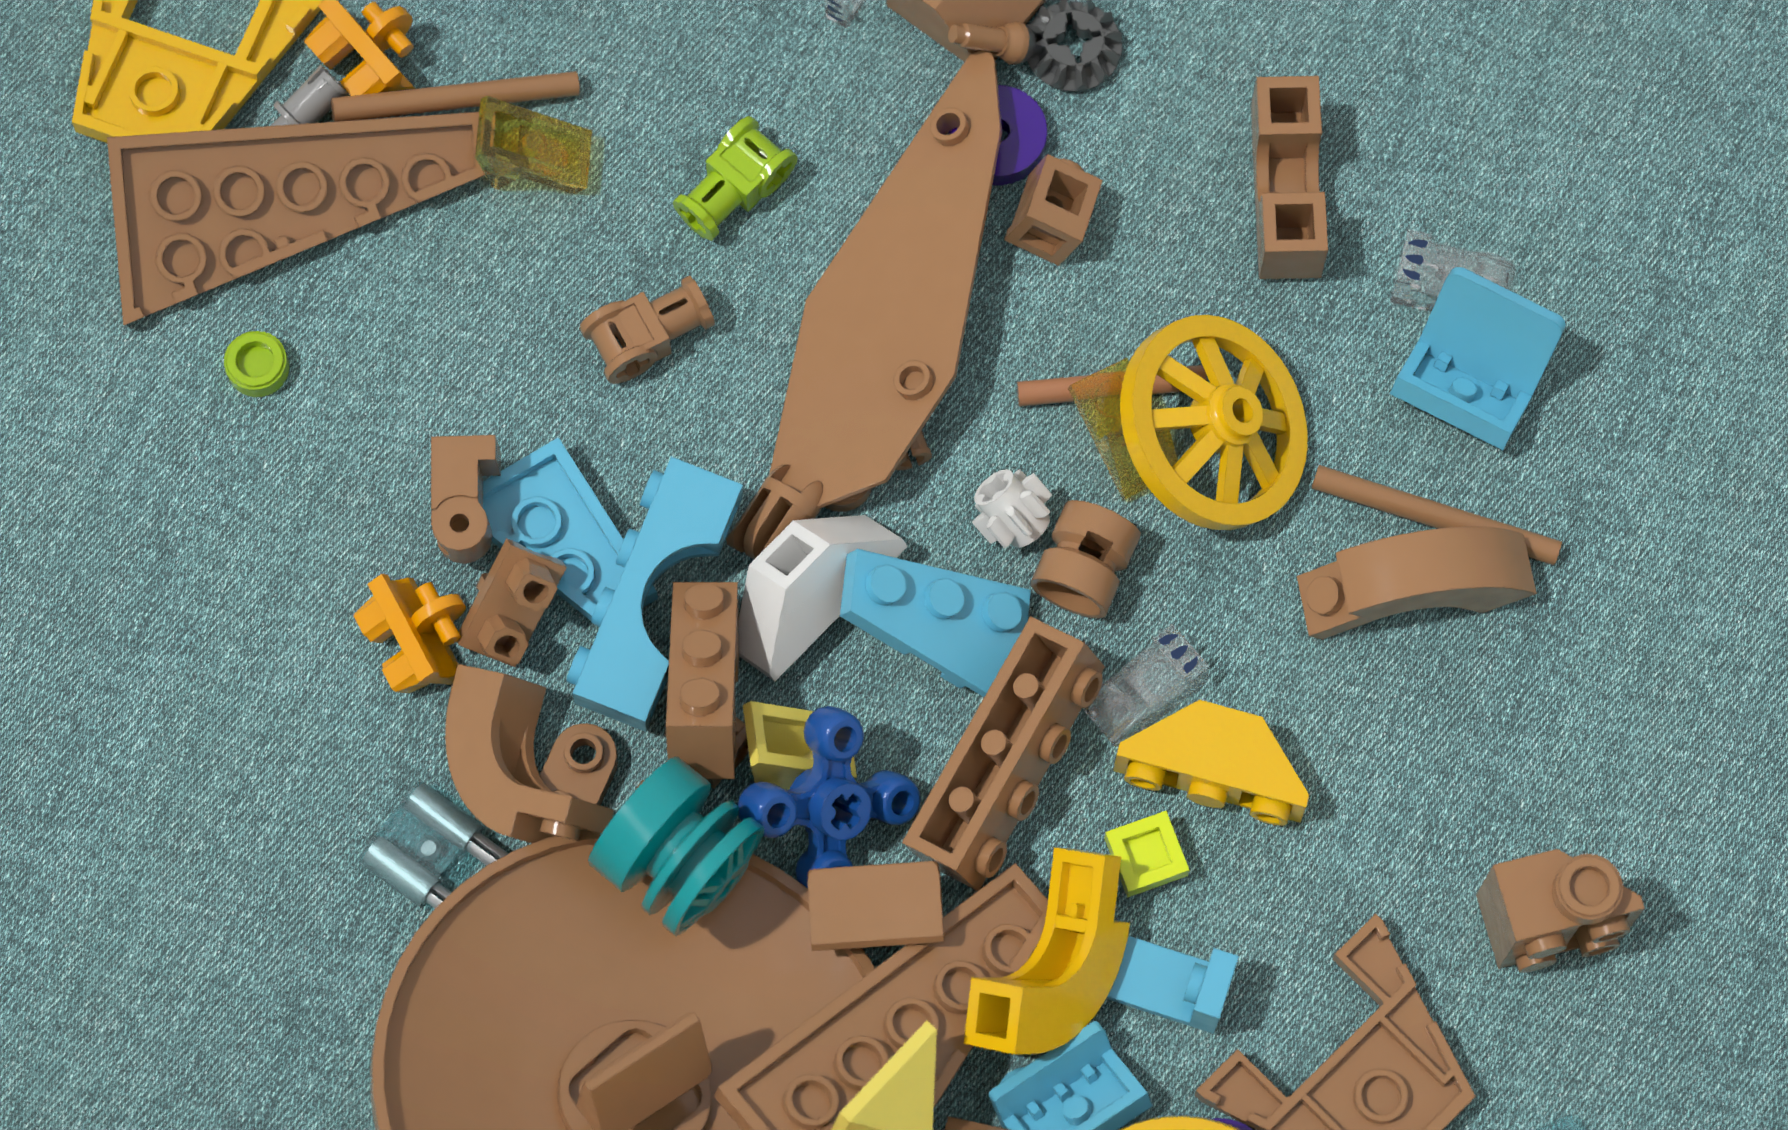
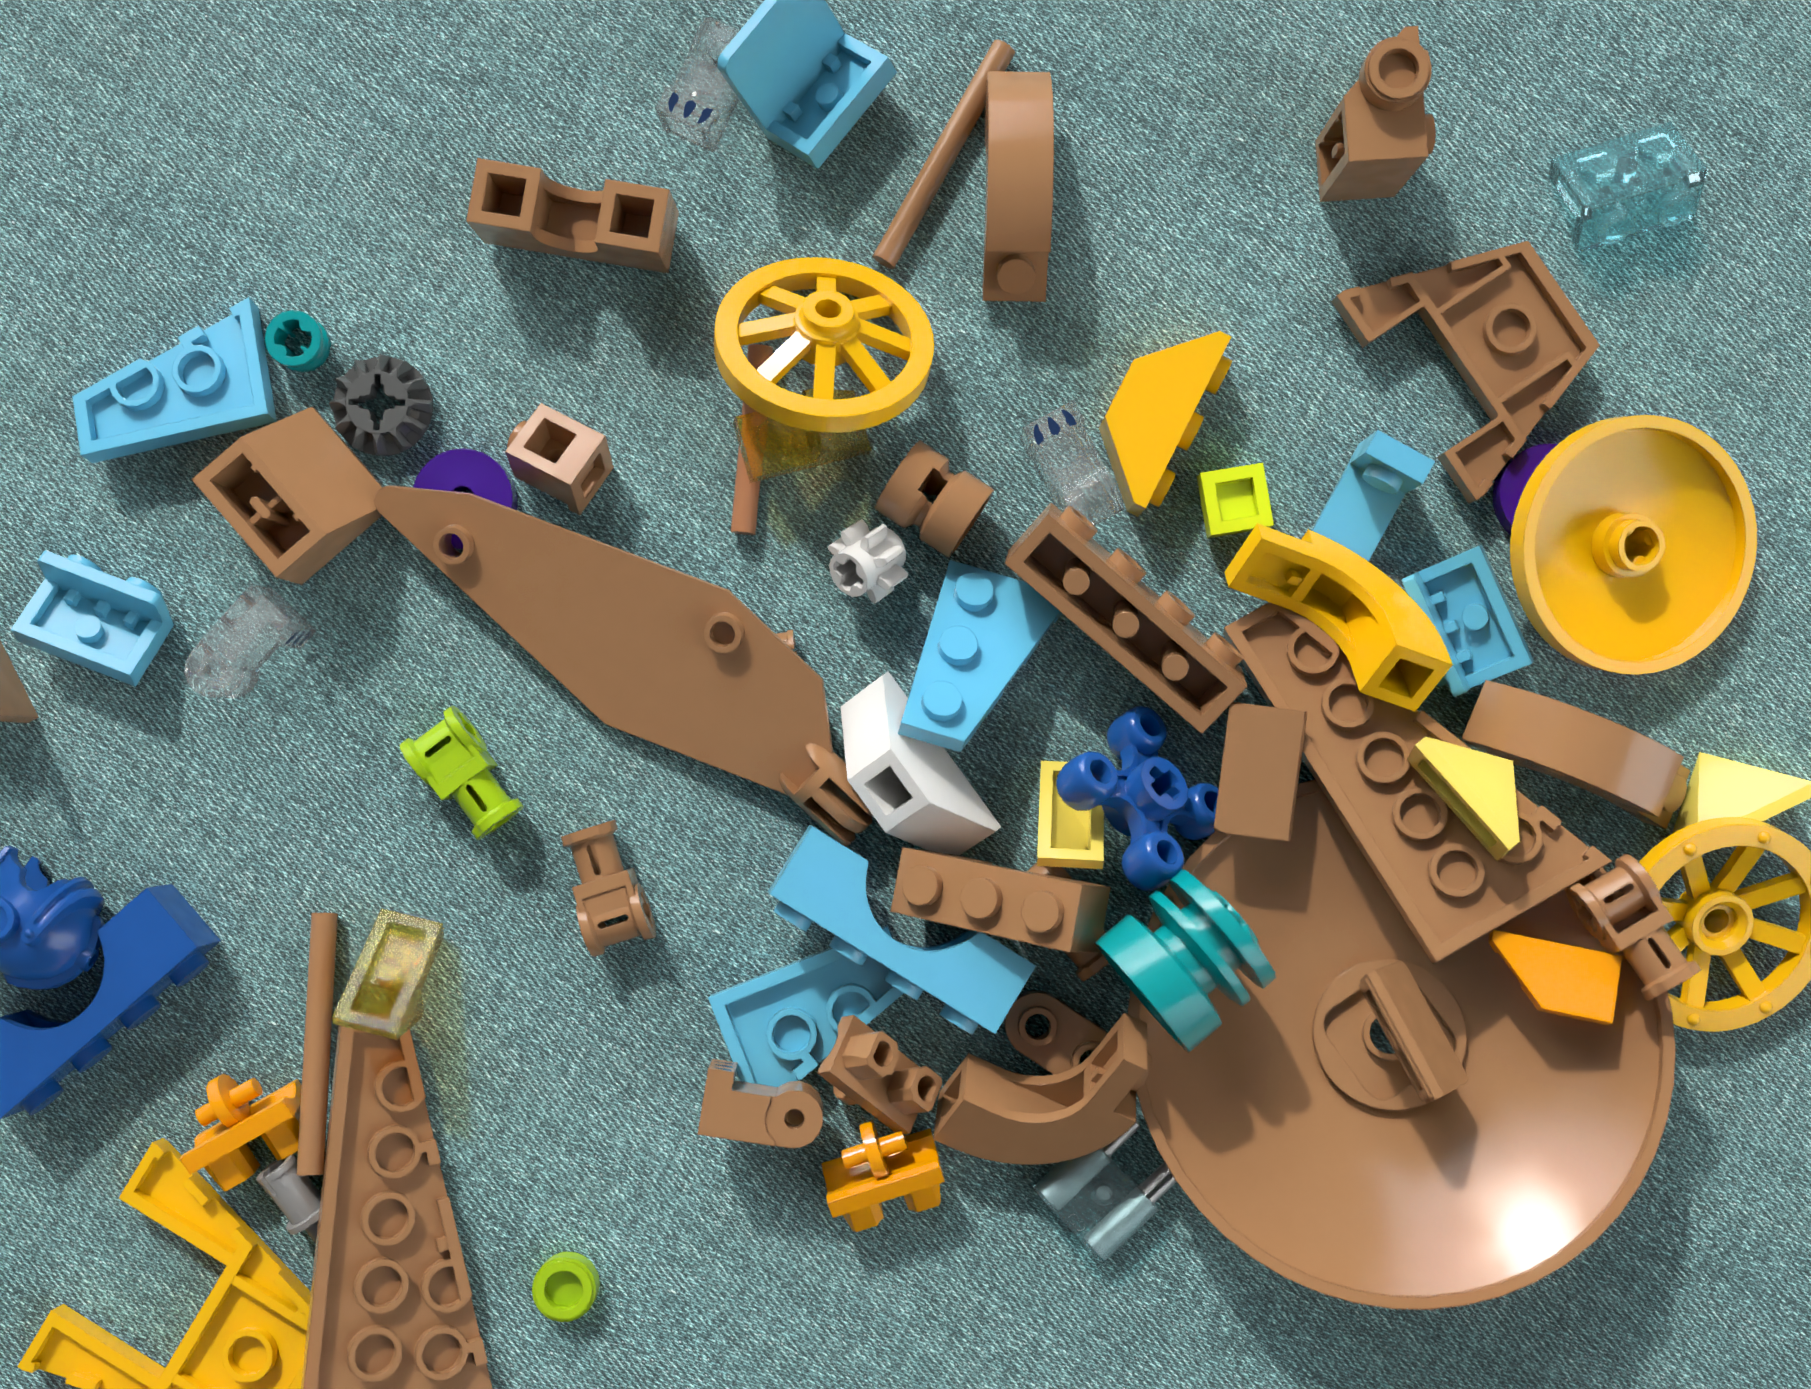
camera: 75 degrees left, 15 degrees up
(1010, 42) = (370, 467): medium nougat piece -> none

